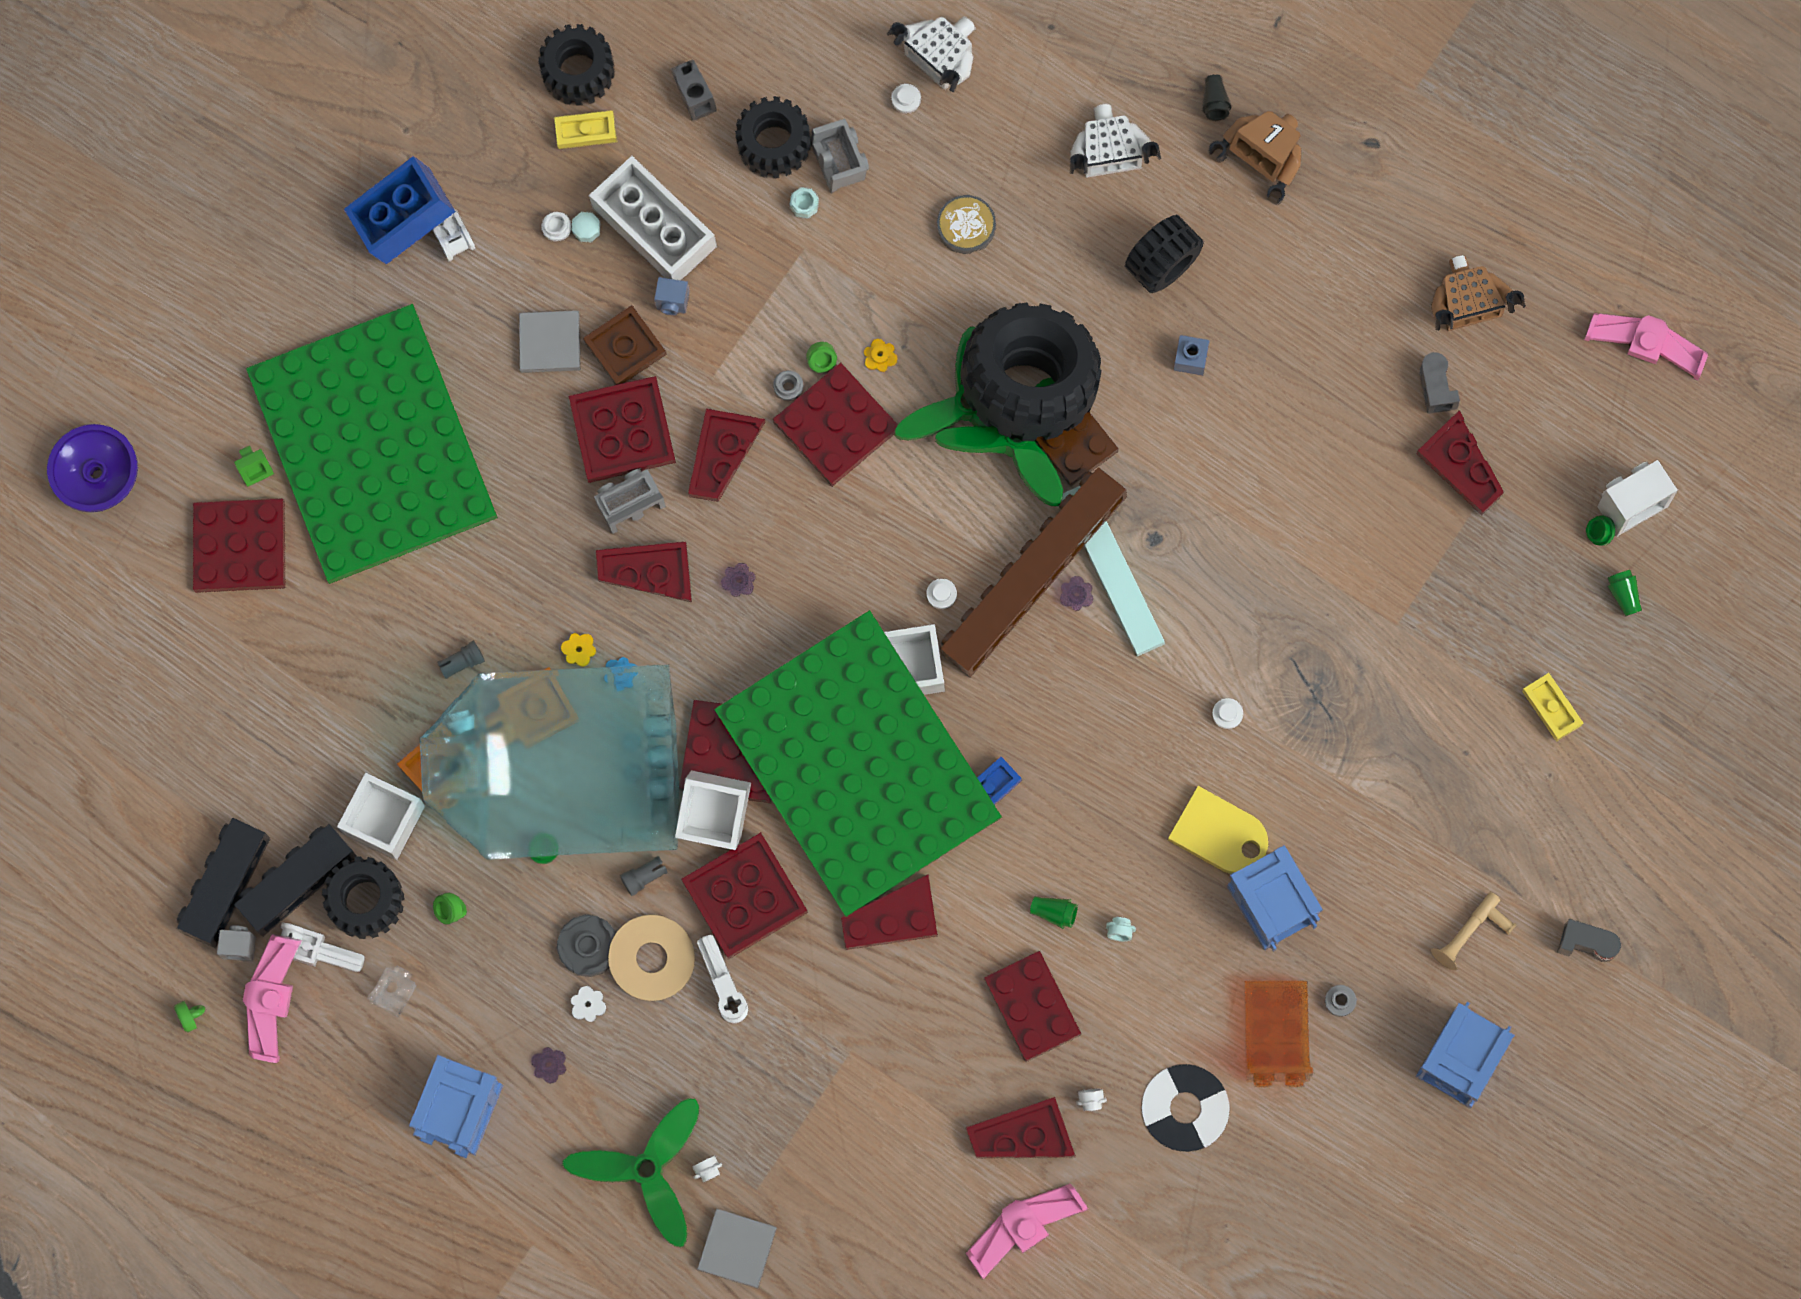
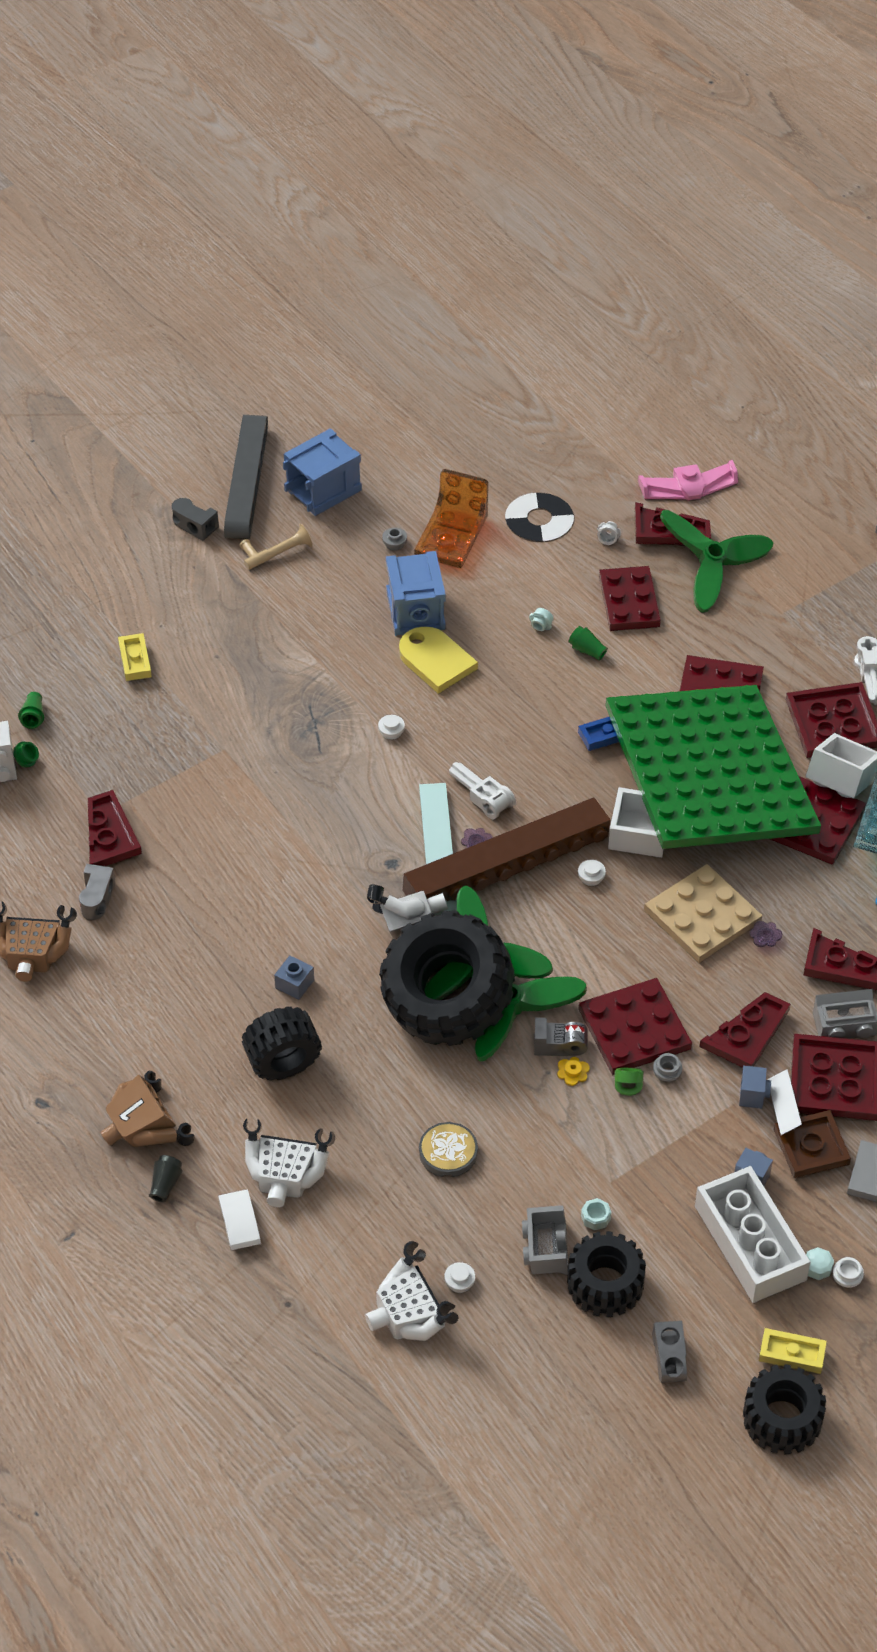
camera: 165 degrees left, 25 degrees down
(662, 376) = (784, 1102): none -> white sticker
(696, 386) = (754, 1087): none -> sand blue plate
(810, 585) = (702, 913): none -> tan plate
(903, 377) = (559, 1038): none -> flat silver leg
(951, 1074) = (714, 555): none -> green piece
(1089, 654) = (485, 793): none -> white connector
(1101, 431) = (405, 909): none -> white torso
(1128, 82) = (239, 1219): none -> white slope
(1559, 1035) = (246, 477): none -> dark grey beam

